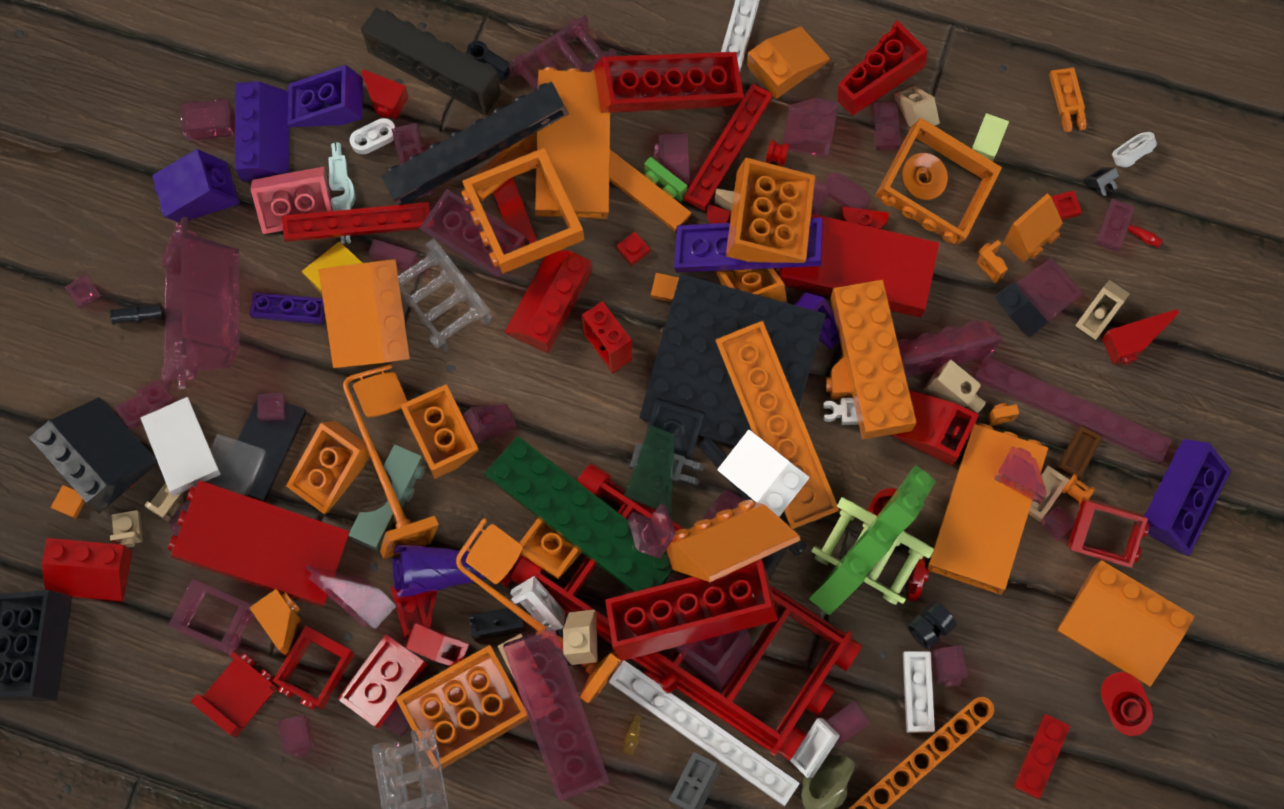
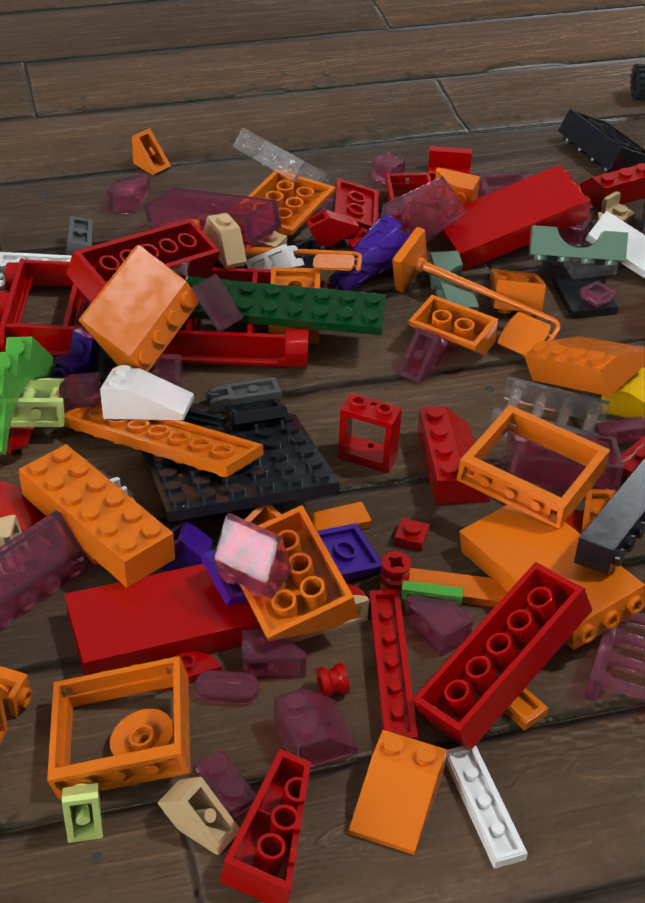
camera: 145 degrees right, 30 degrees down
(222, 441) = (547, 242): none -> sand green arch
(652, 473) = (248, 371): clear green wing -> none
(673, 213) = (395, 569): none -> red wheel
(793, 579) = (80, 357): none -> dark purple slope
(799, 213) = (252, 557): none -> clear pink slope
(810, 526) = (81, 390): none -> clear pink brick

